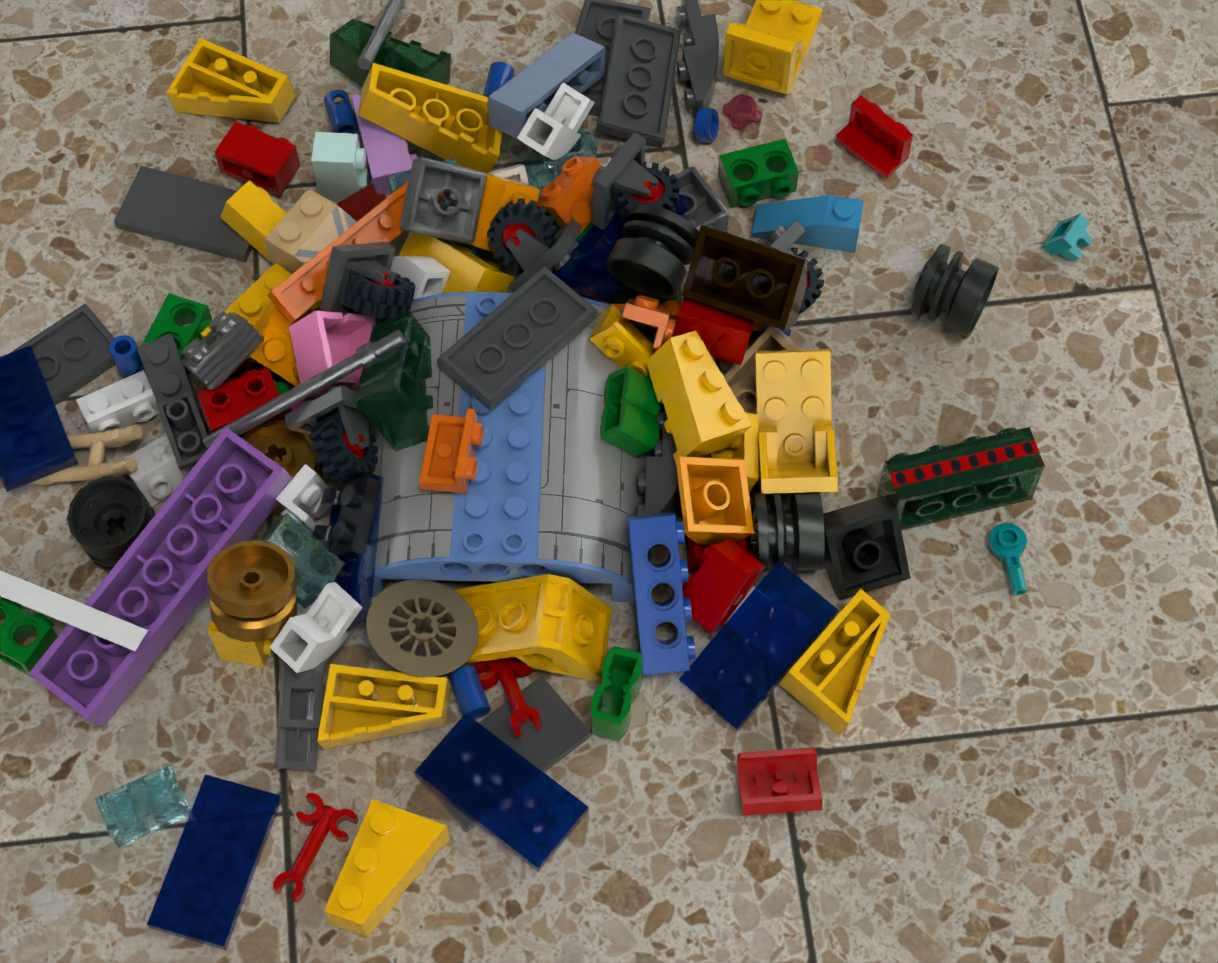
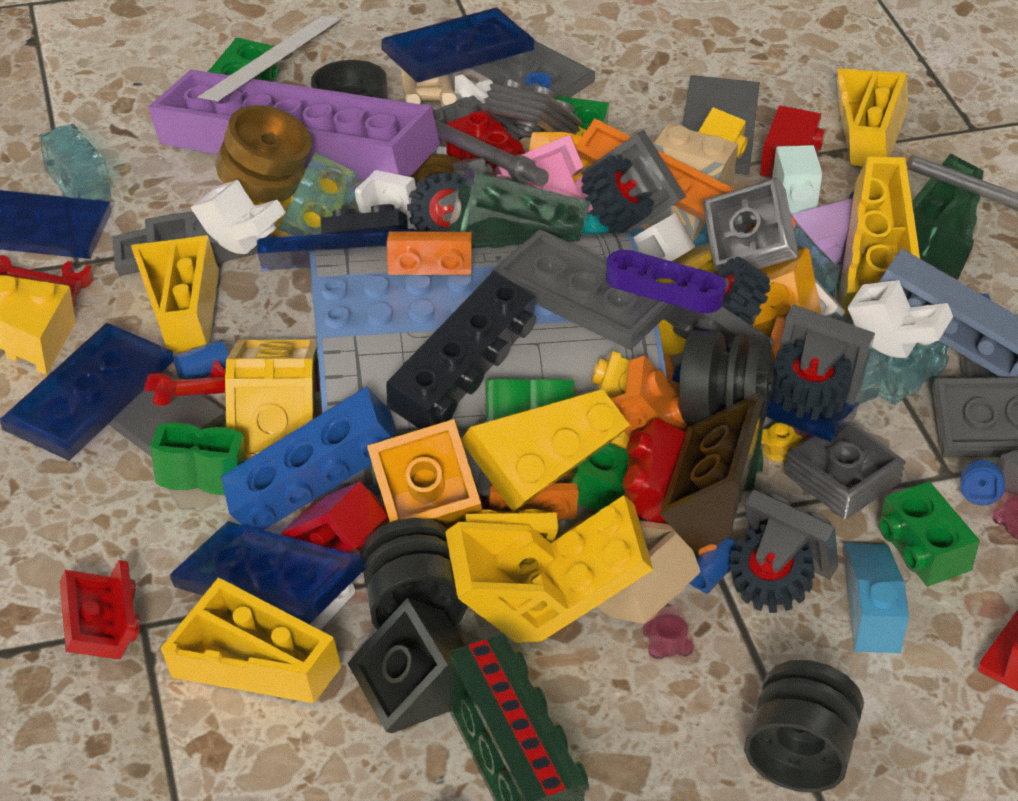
camera: 80 degrees right, 20 degrees down
(437, 598) = (222, 291): dark tan piece -> none
(538, 285) = (703, 292): none -> dark purple beam
(587, 442) = (461, 352): none -> black brick
(847, 363) = (668, 637): none -> clear pink plate

